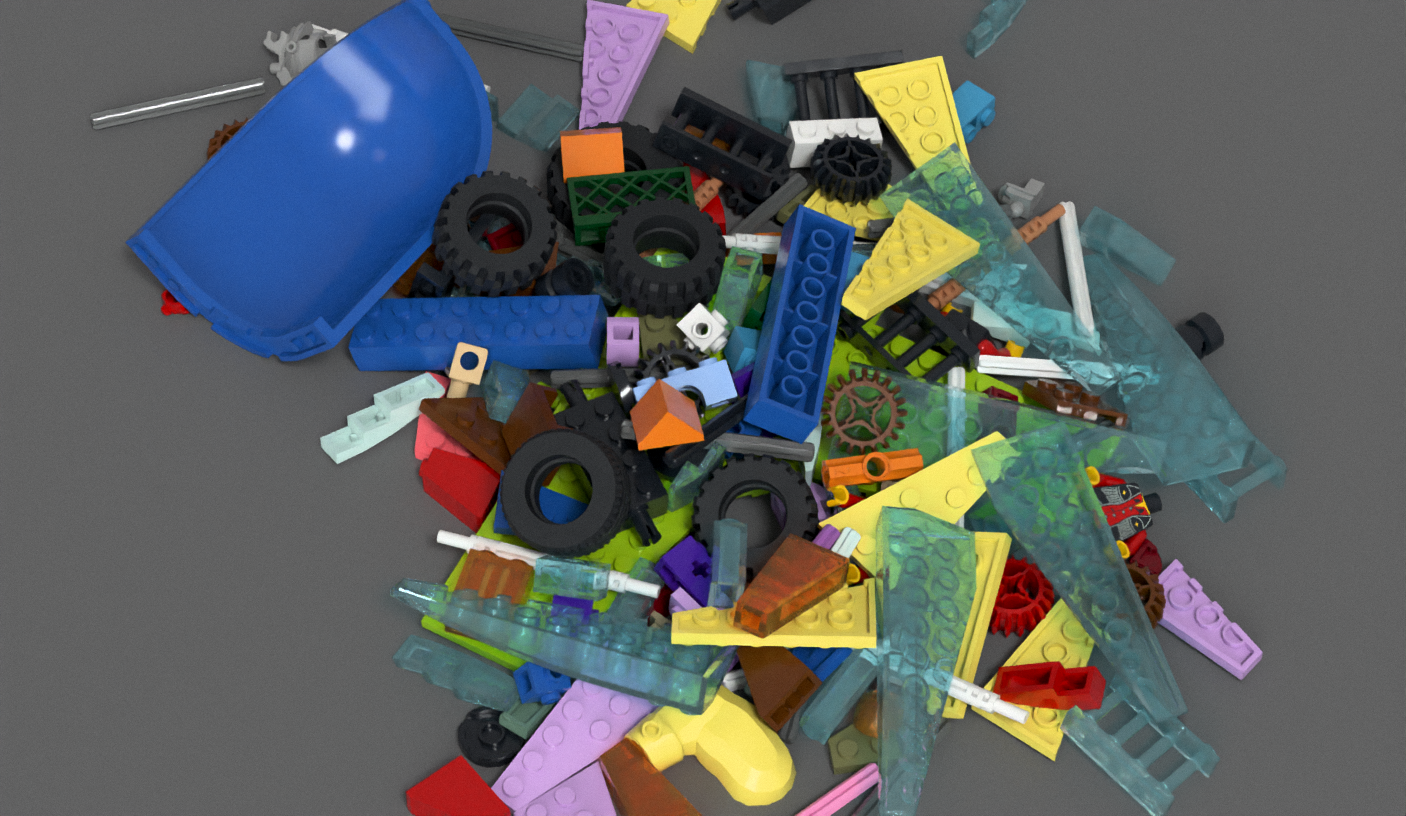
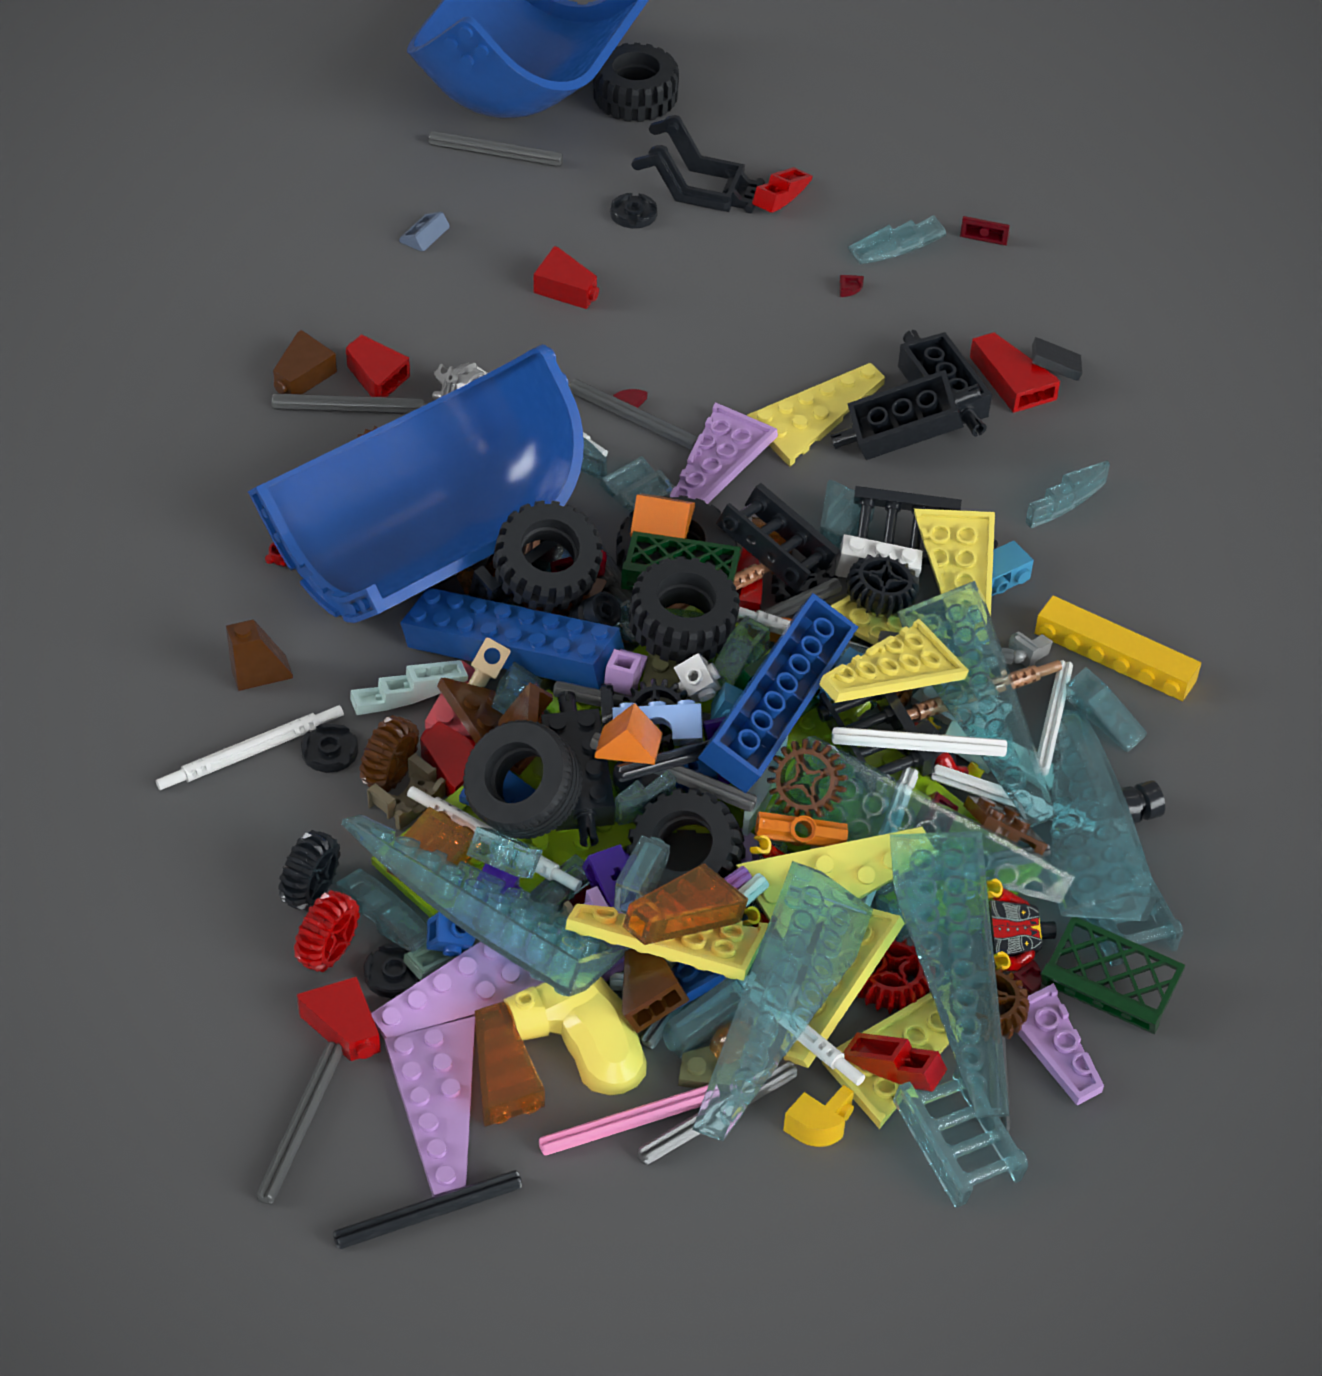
camera: 15 degrees right, 5 degrees down
(111, 70) = (303, 365): none -> reddish brown slope
(193, 51) = (377, 366): none -> red slope
(202, 429) = (255, 656): none -> reddish brown slope
(235, 532) = (249, 747): none -> white axle
(322, 509) = (329, 748): none -> black tile
(363, 653) = (309, 869): none -> black gear
(396, 499) = (388, 752): none -> reddish brown gear
(409, 714) = (326, 931): none -> red gear
(427, 551) = (403, 807): none -> dark tan piece
(492, 15) = (632, 396): none -> dark red tile
(959, 338) = (919, 741): none -> white axle
(992, 774) = (819, 1123): none -> yellow brick
(1113, 173) = (1118, 648): none -> yellow brick
(1226, 559) = (1096, 993): none -> dark green fence

